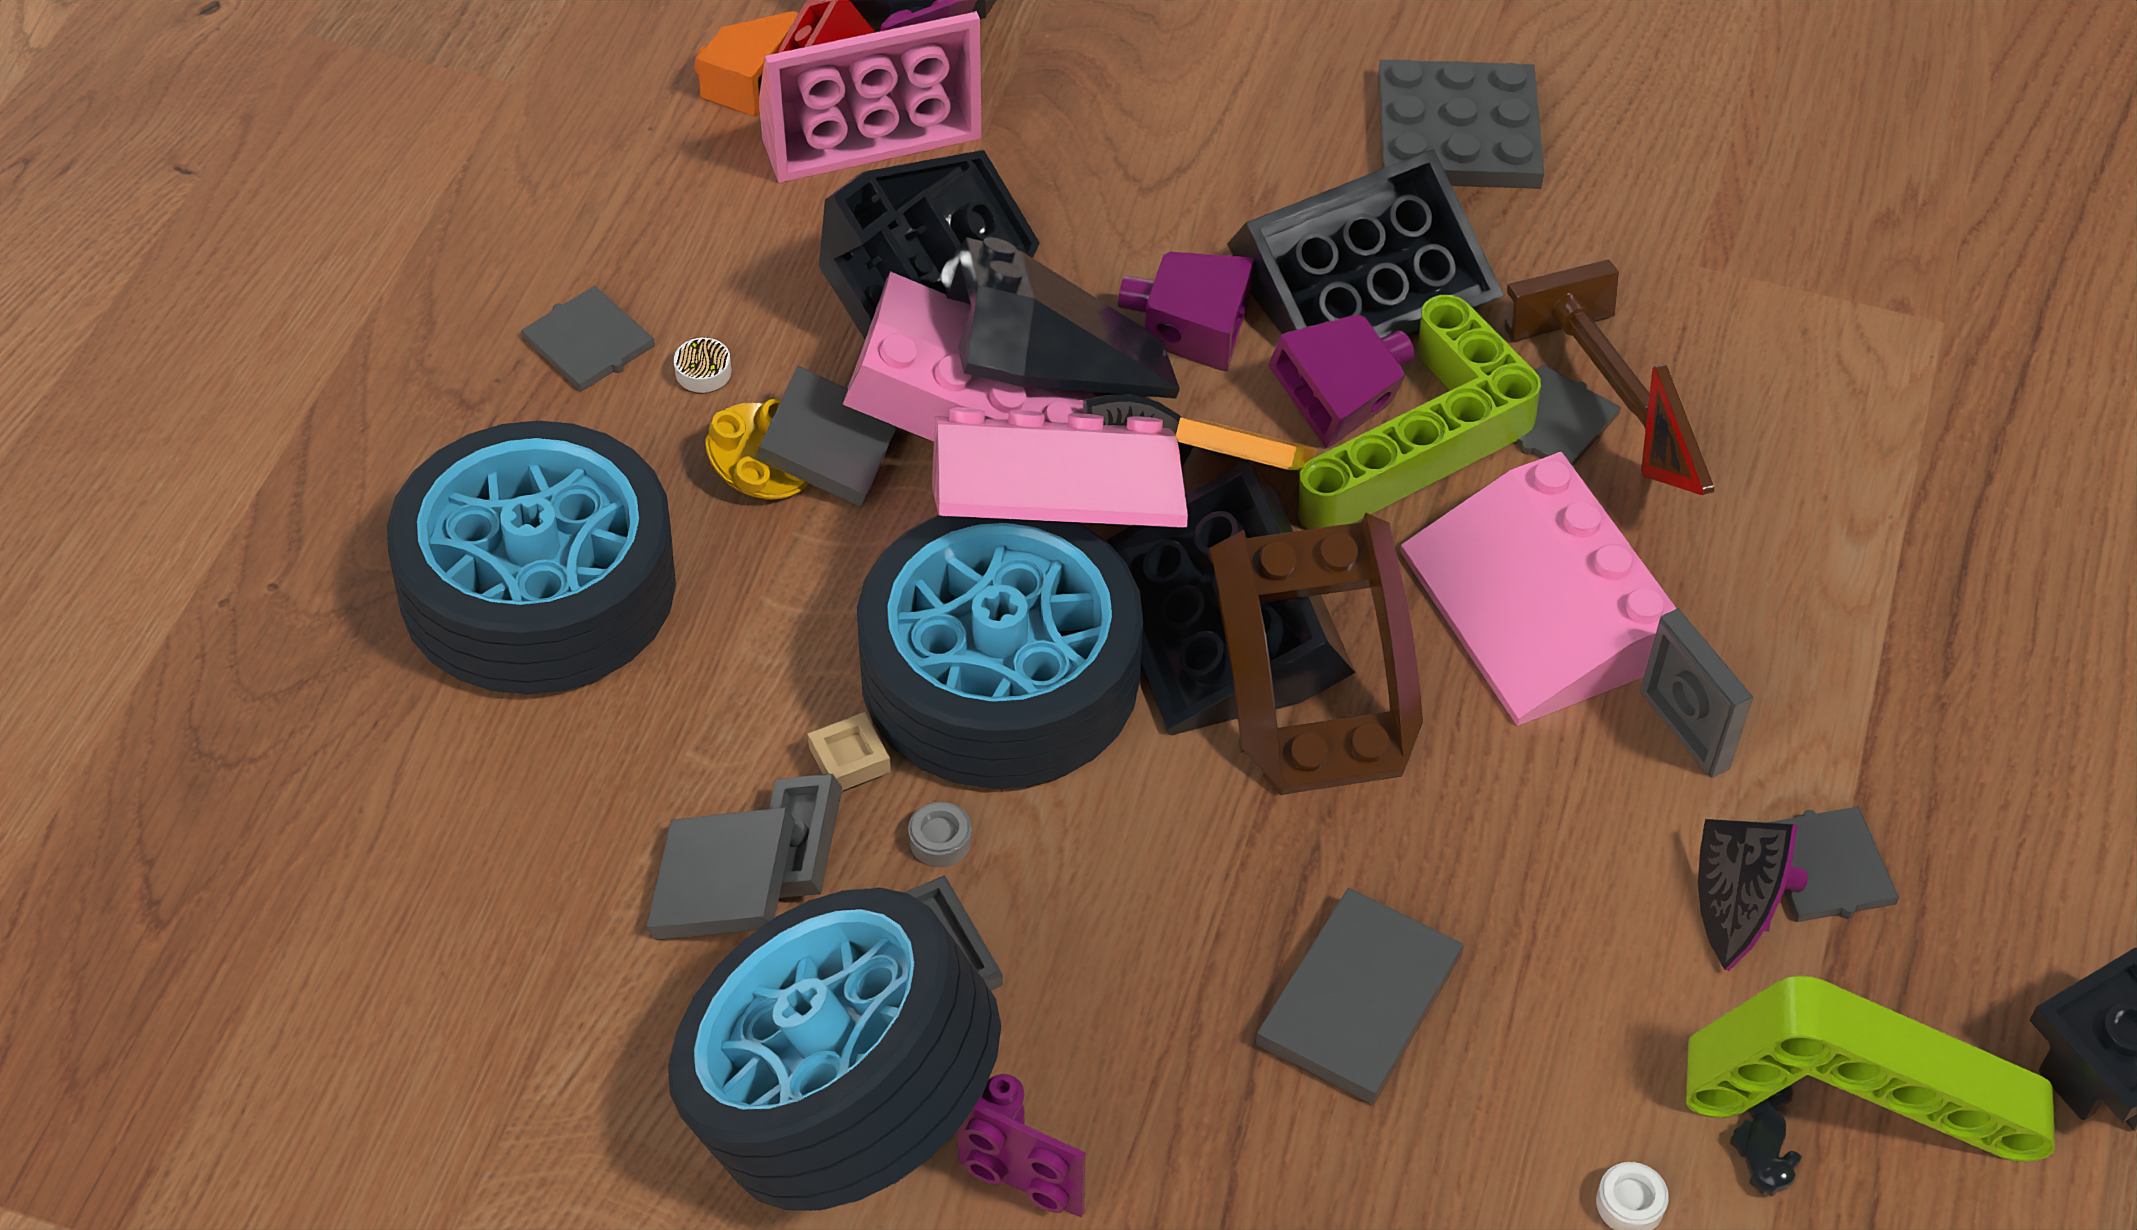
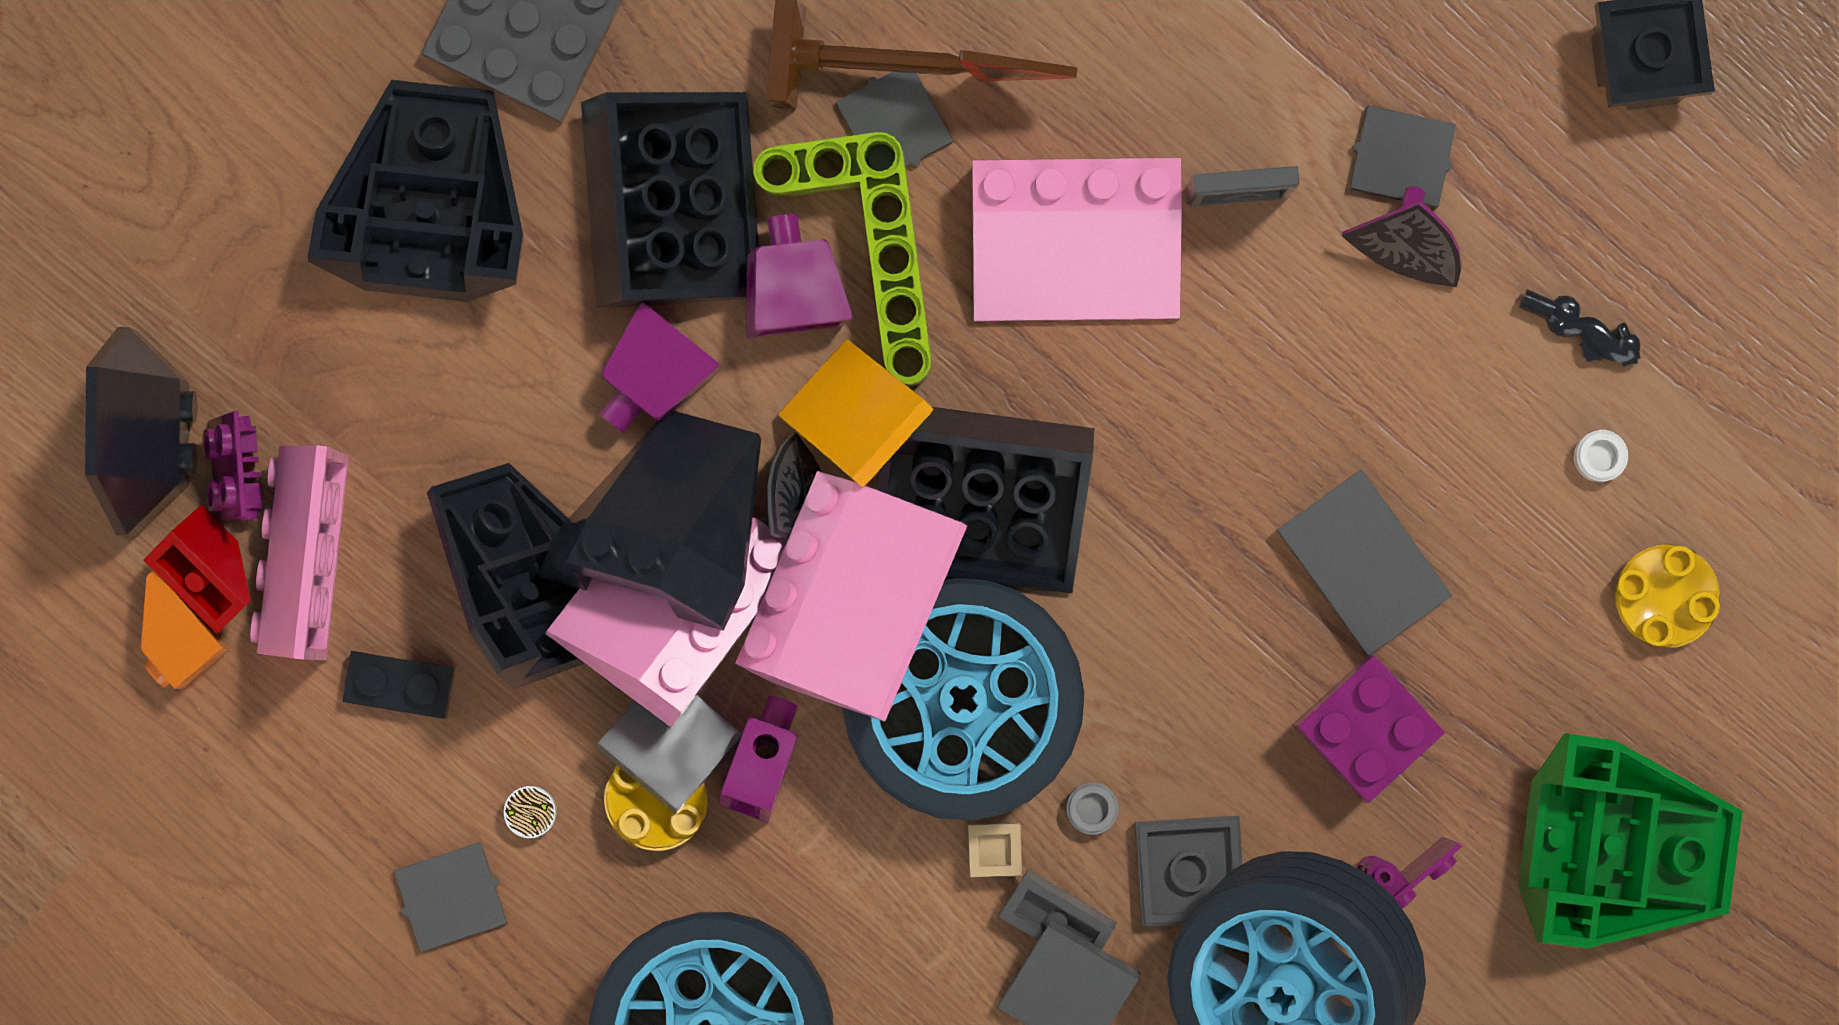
camera: 70 degrees left, 35 degrees up
(781, 233) = (399, 684): none -> black plate
(840, 505) = (754, 781): none -> magenta torso
(1171, 1057) = (1368, 728): none -> magenta brick
(1243, 90) = (423, 199): none -> black wedge
(1305, 566) = (1025, 443): reddish brown wedge -> none
(1874, 1053) = (1607, 253): lime beam -> none

